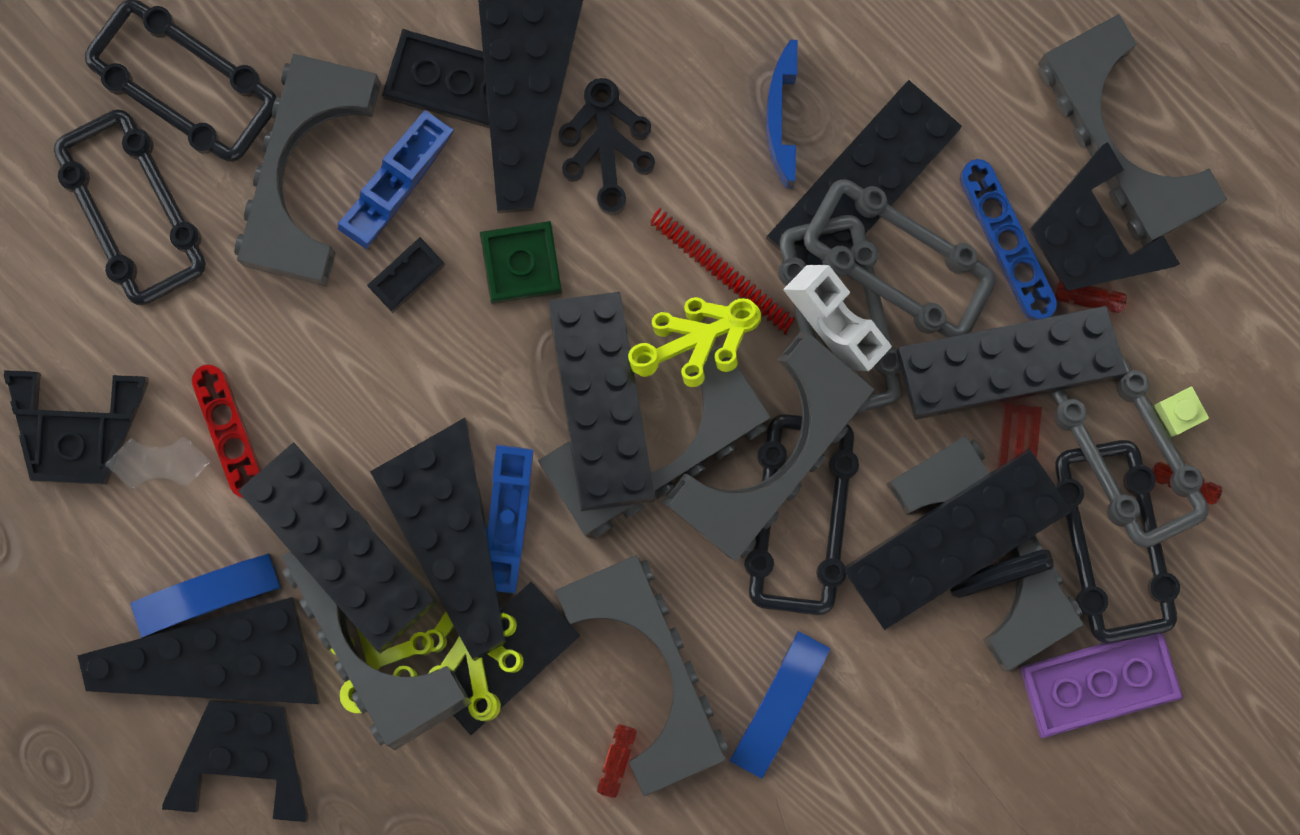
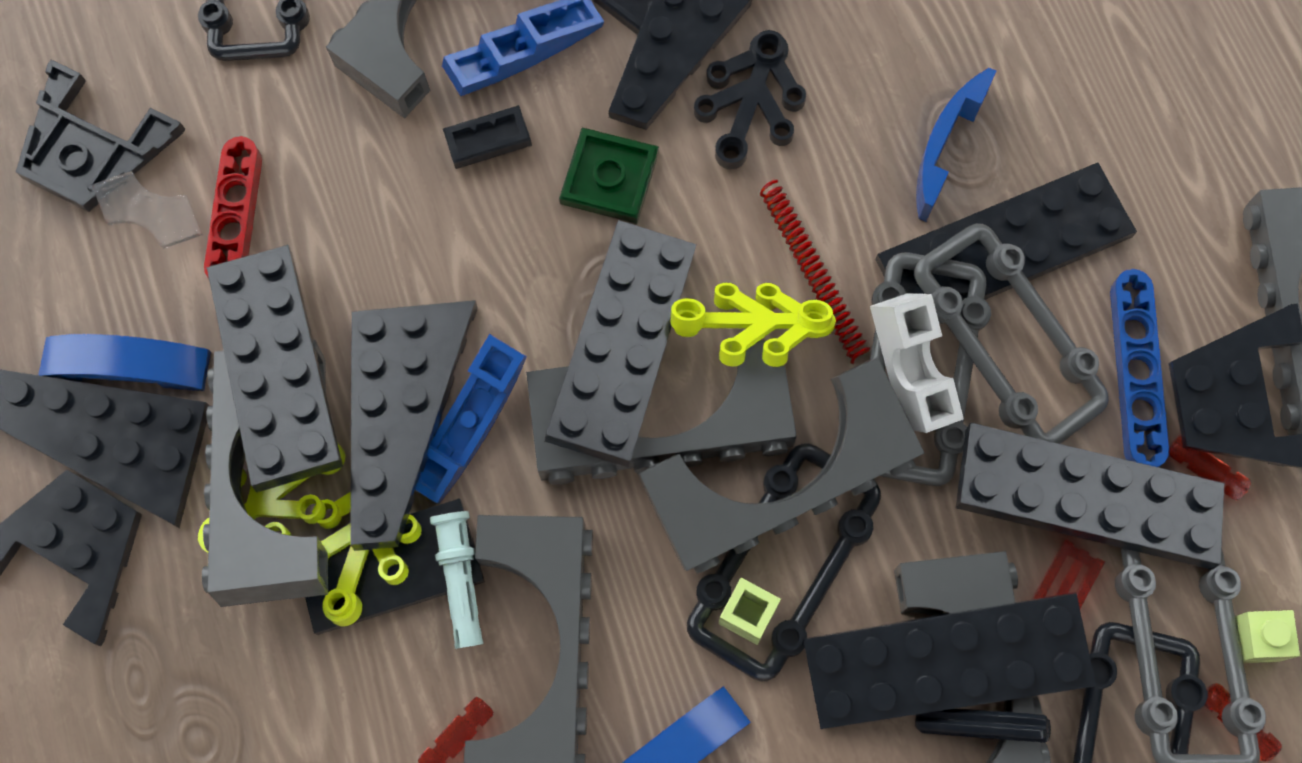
camera: 30 degrees right, 10 degrees down
(553, 630) = (455, 557): none -> light aqua pin
(794, 568) = (749, 611): none -> yellowish green brick

